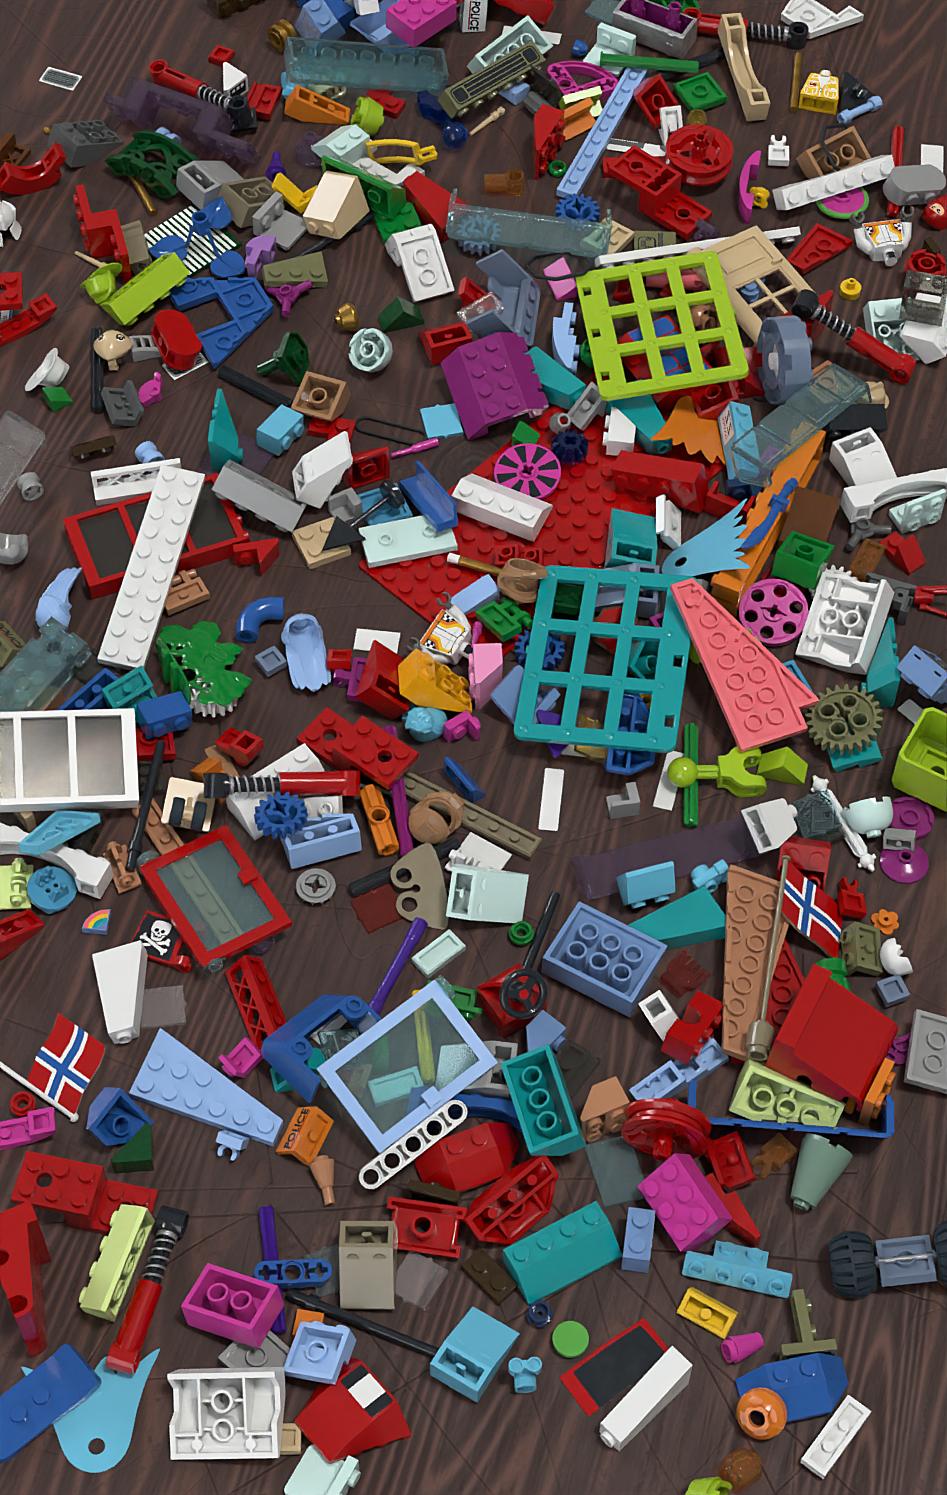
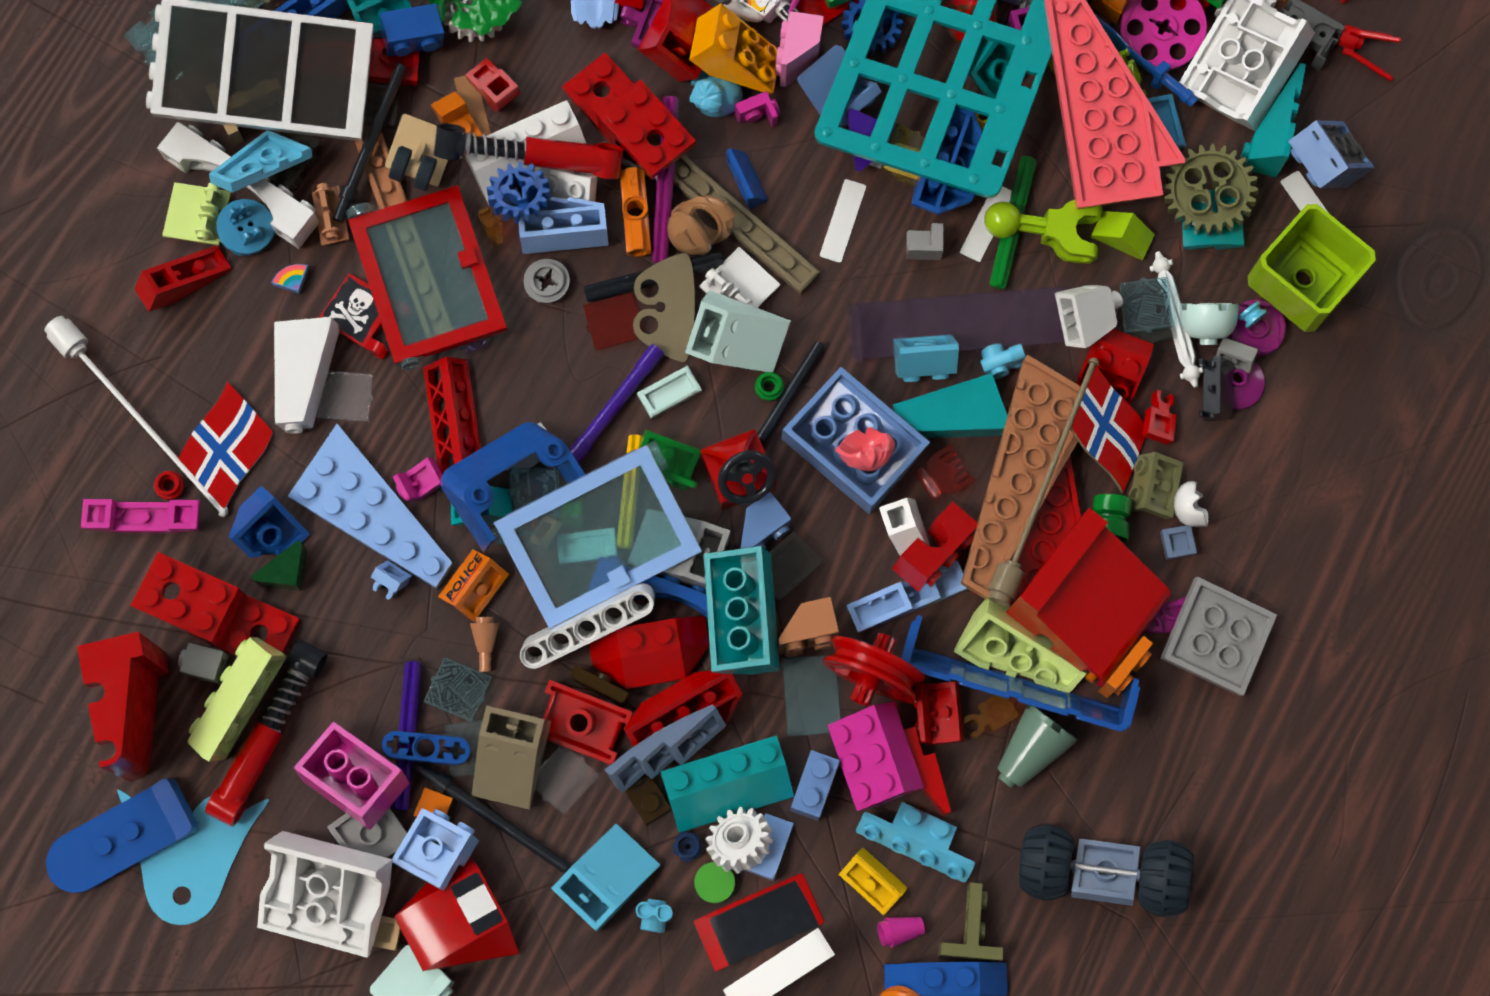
camera: 10 degrees right, 20 degrees up
(80, 1242) = (202, 663): none -> light grey brick
(260, 850) = (491, 226): none -> clear orange plate
(309, 1223) = (457, 689): none -> clear light blue piece
(507, 1224) = (673, 742): none -> sand blue slope
(585, 1296) = (739, 840): none -> white gear
(610, 1301) = (780, 835): none -> light blue slope
(617, 958) = (866, 450): none -> coral hair
(781, 648) = (1159, 73): none -> blue sword
(885, 921) = (1193, 460): orange plant -> none
(891, 867) = (1217, 389): none -> black hinge
(904, 805) = (1252, 314): none -> medium azure bush

